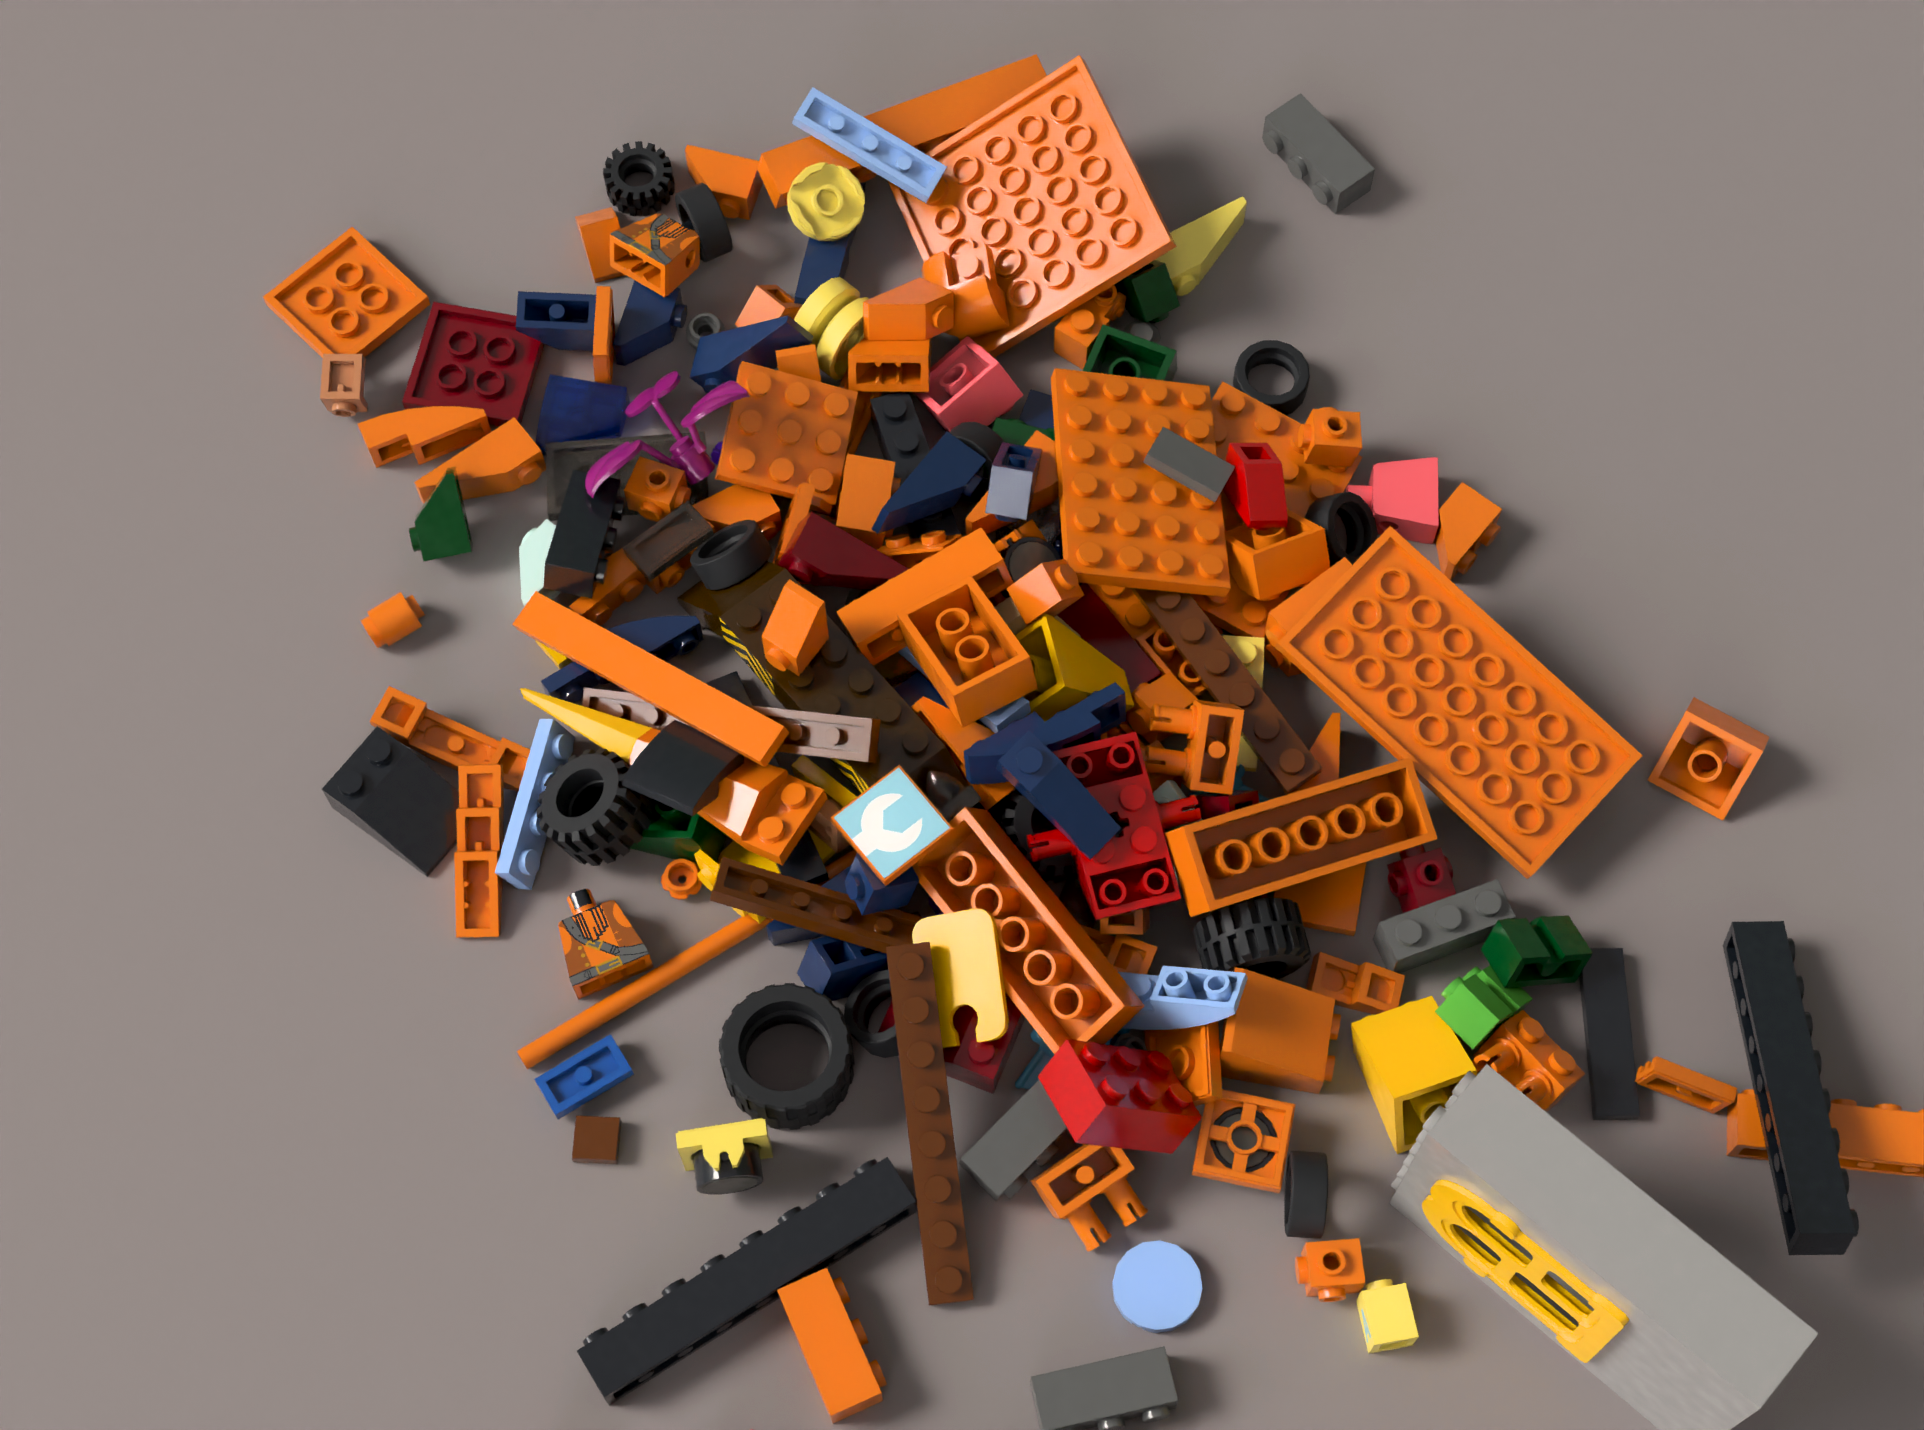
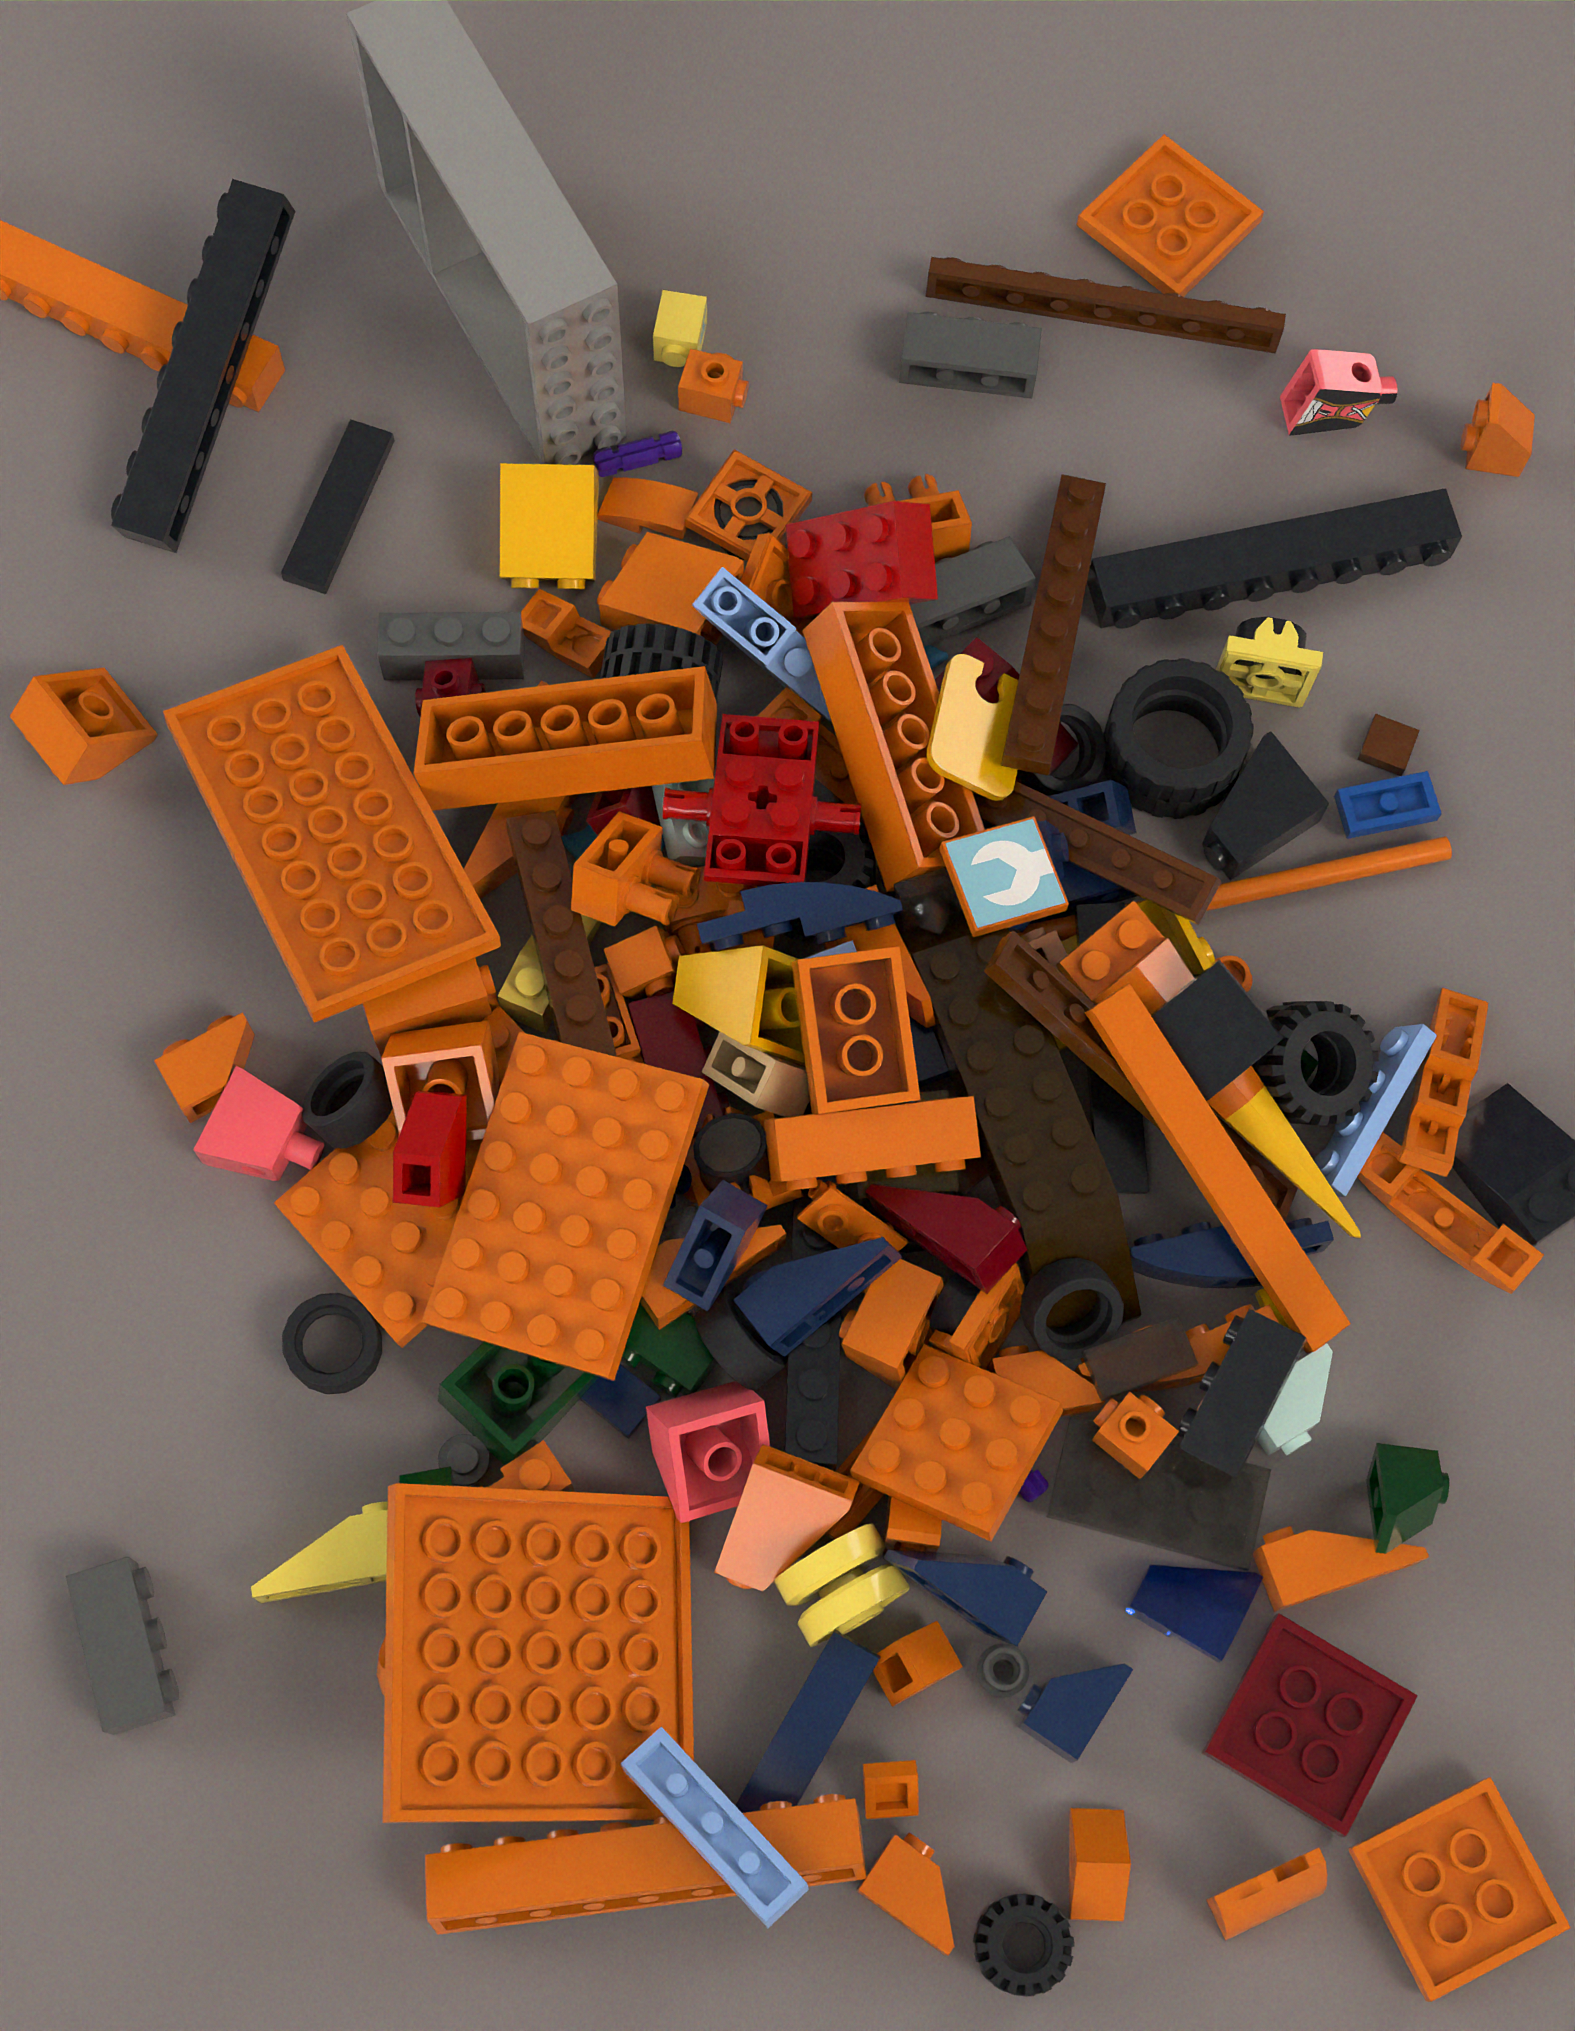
camera: 165 degrees left, 5 degrees up
(343, 384) = (1489, 1745): nougat bracket -> none
(393, 619) = (1487, 1397): orange brick -> none
(423, 431) = (1402, 1643): orange slope -> none
(489, 248) = (1269, 1894): none -> orange slope
(557, 319) = (1193, 1733): dark blue slope -> none
(600, 945) = (1337, 930): torso -> none
(604, 335) = (1143, 1677): orange tile -> none
(656, 252) = (1036, 1783): orange torso -> none
(686, 453) = (1051, 1462): magenta plant -> none
(688, 1028) = (1263, 810): none -> black slope
(707, 219) = (962, 1819): black tyre -> none
(760, 235) = (890, 1789): none -> orange plate
(795, 629) = (1045, 1110): orange slope -> none
(826, 201) = (797, 1771): light yellow tile -> none
(832, 1344) = (1210, 470): orange brick -> none
(909, 312) = (748, 1547): orange slope -> none
(977, 297) = (664, 1576): orange brick -> none
(1045, 590) = (738, 1074): orange brick -> none
(1057, 794) = (826, 826): dark blue slope -> none
(1157, 1286) = (881, 432): light blue tile -> none
(1189, 464) = (501, 1191): dark grey tile -> none
(1306, 1194) = (709, 439): black tyre -> none
(1331, 437) = (306, 1211): orange brick -> none
(1336, 1126) = (648, 504): none -> orange slope
(1368, 1181) = (637, 453): none -> dark purple axle
(1480, 1005) = (455, 546): bright green brick -> none
(1530, 1060) = (438, 485): orange brick -> none
(1536, 952) = (373, 580): dark green brick -> none
(1685, 1085) = (294, 420): orange tile -> none

